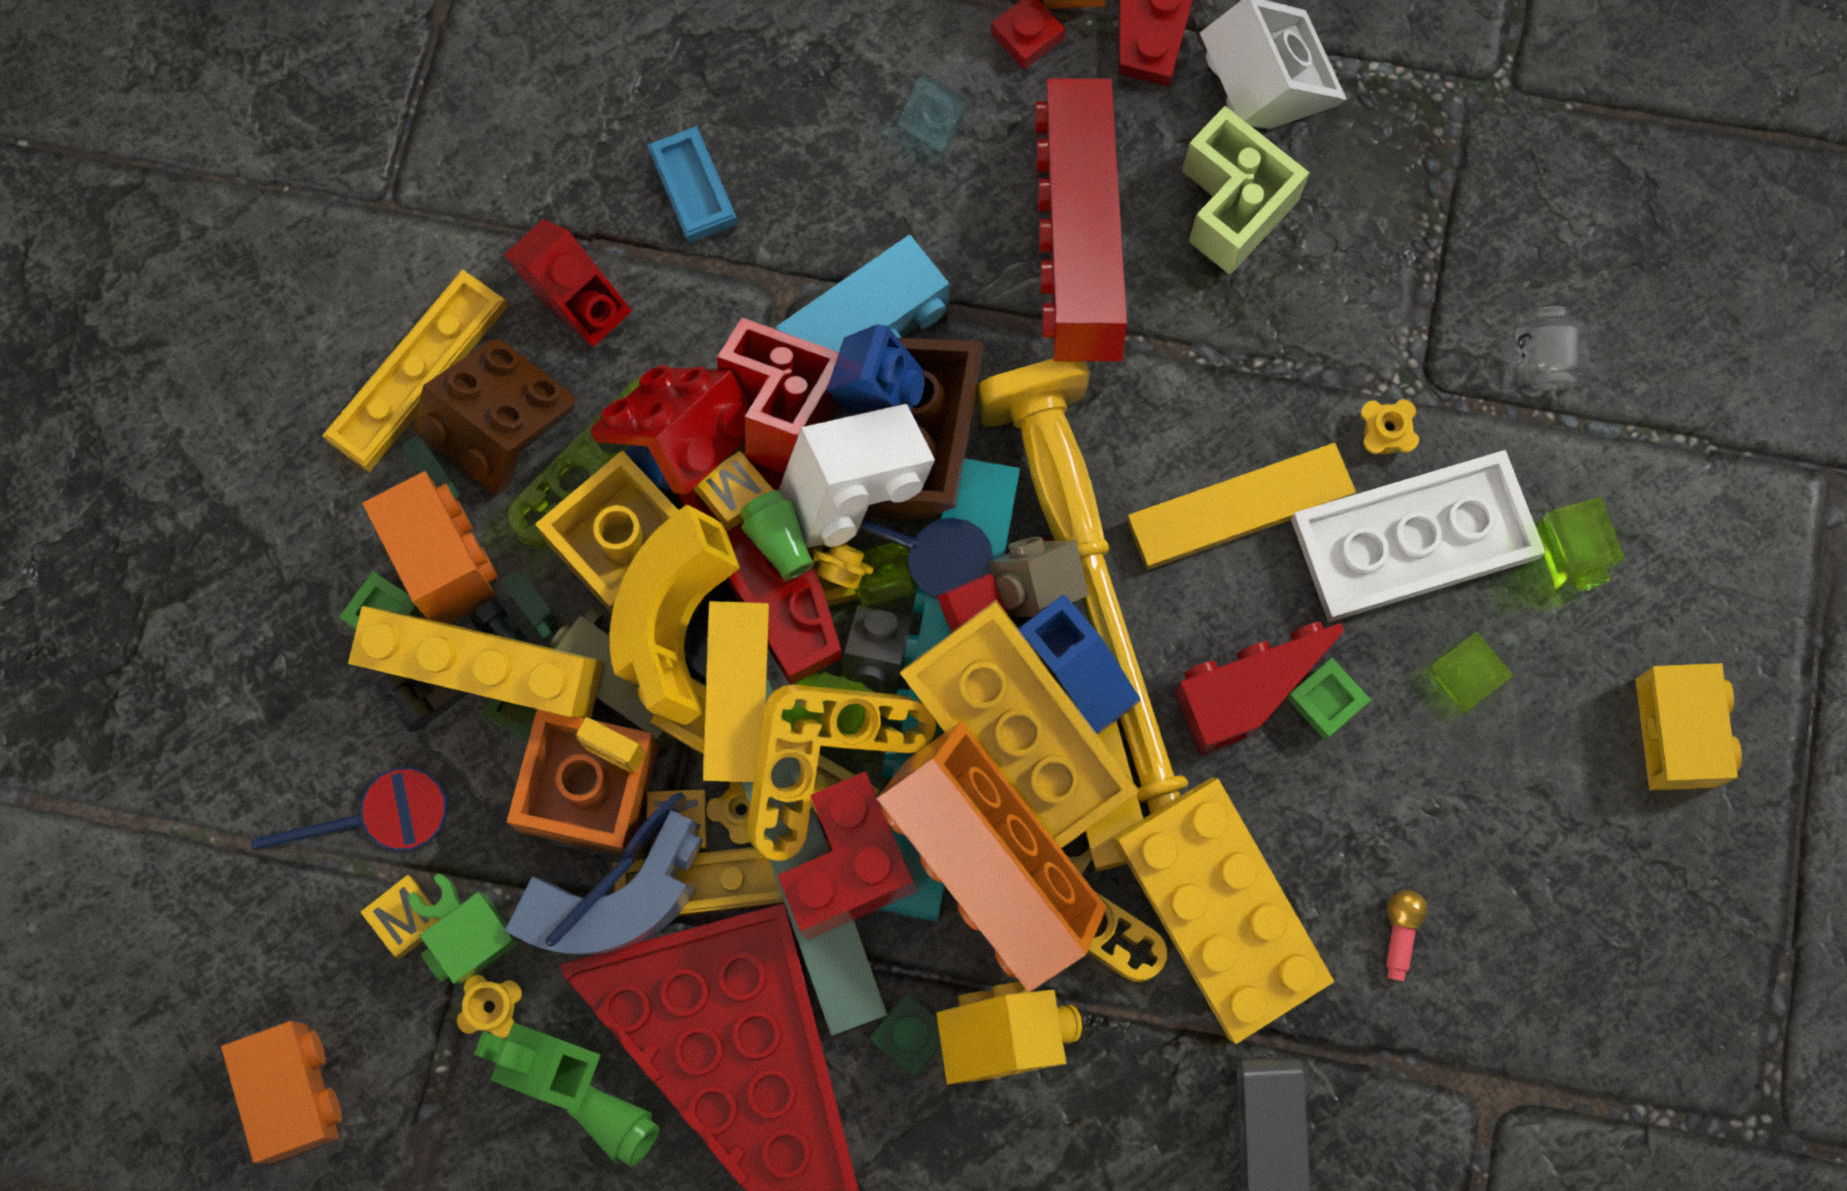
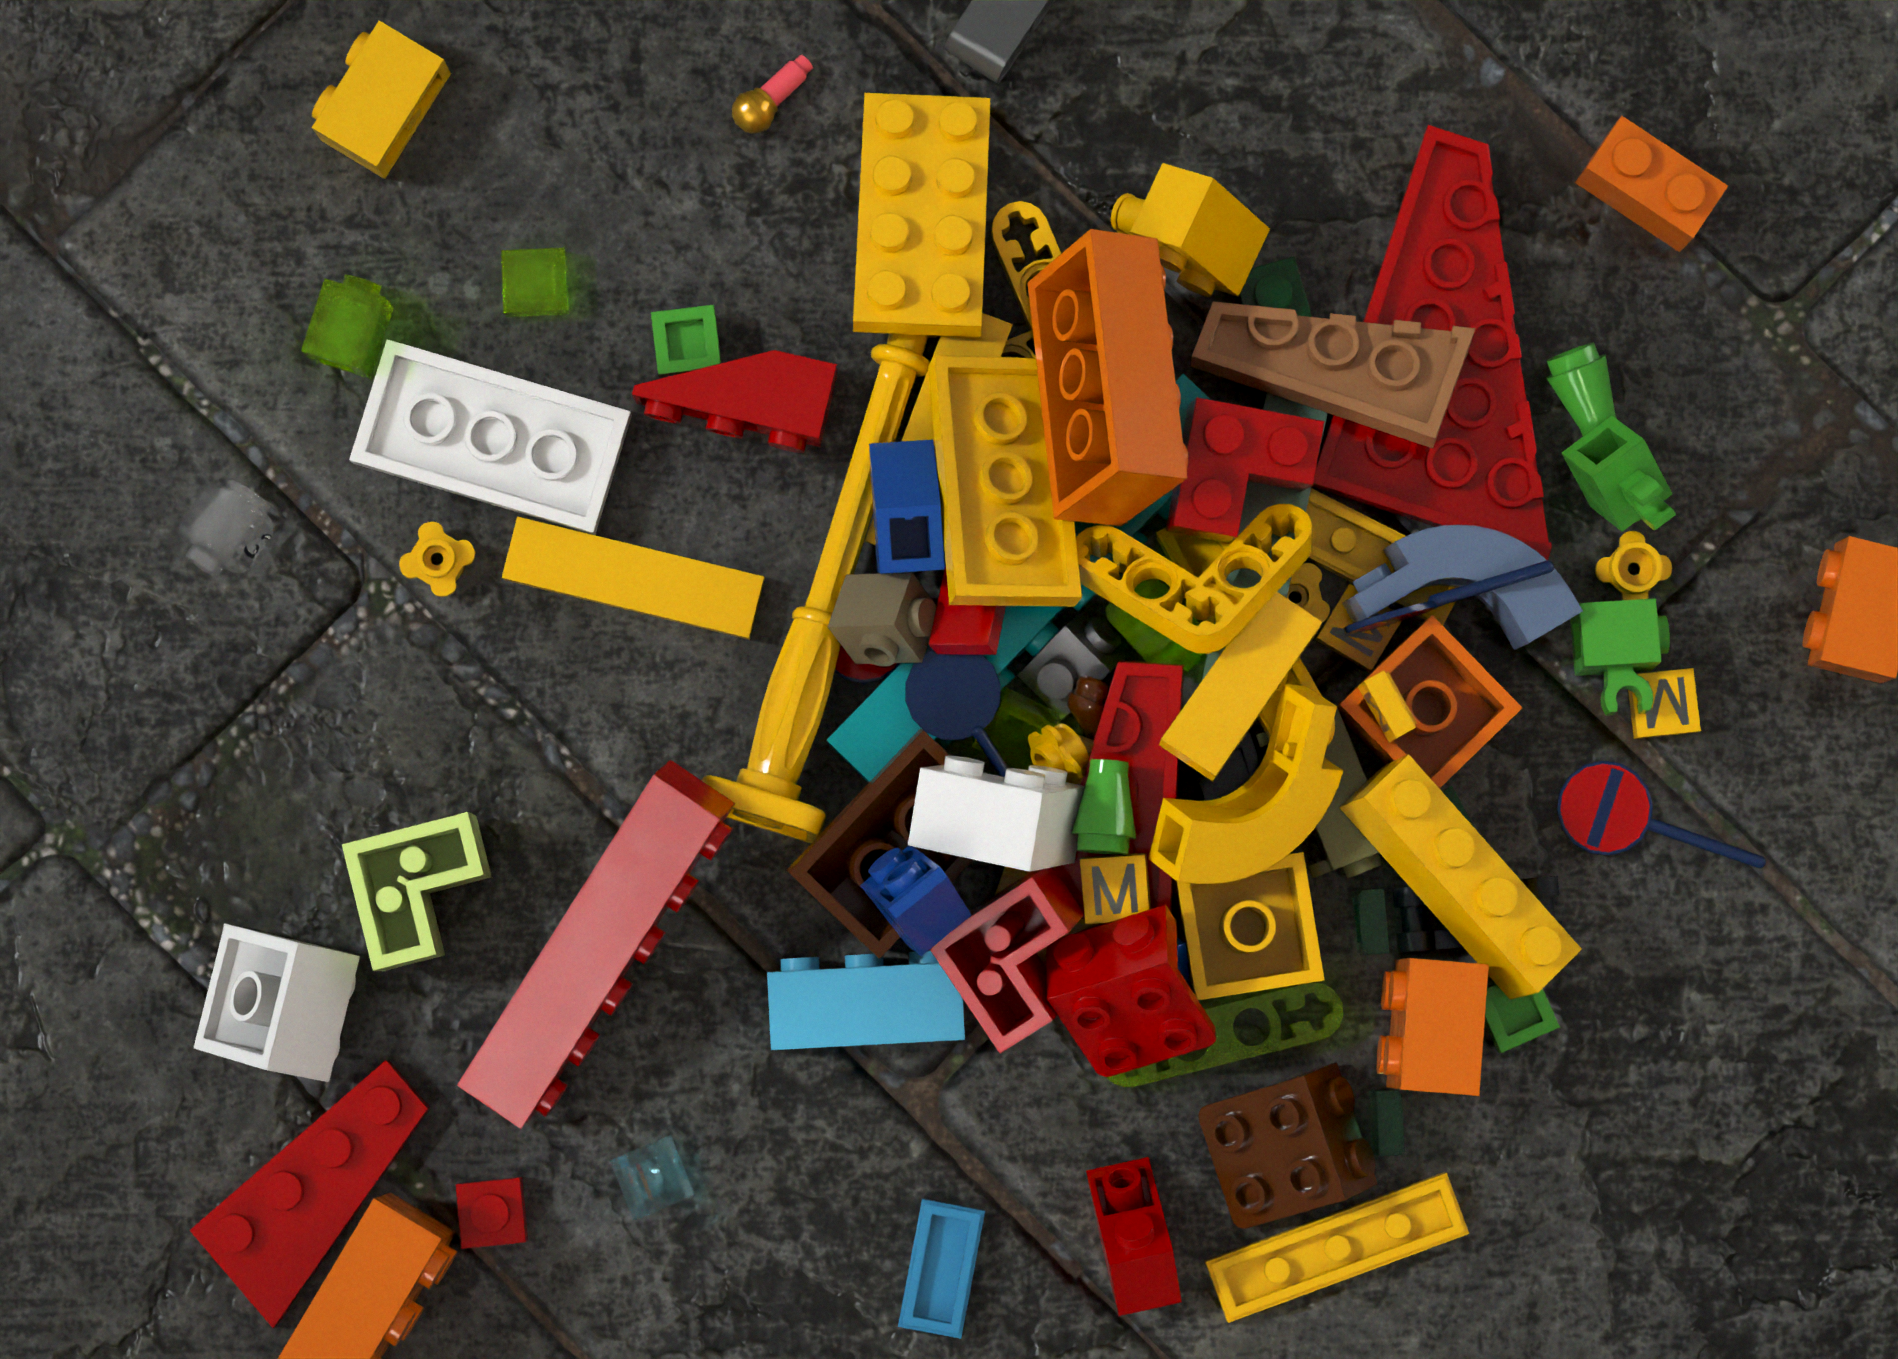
camera: 150 degrees left, 10 degrees up
(803, 1009) = (1360, 371): none -> medium nougat wing
(846, 619) = (1088, 704): none -> reddish brown arm

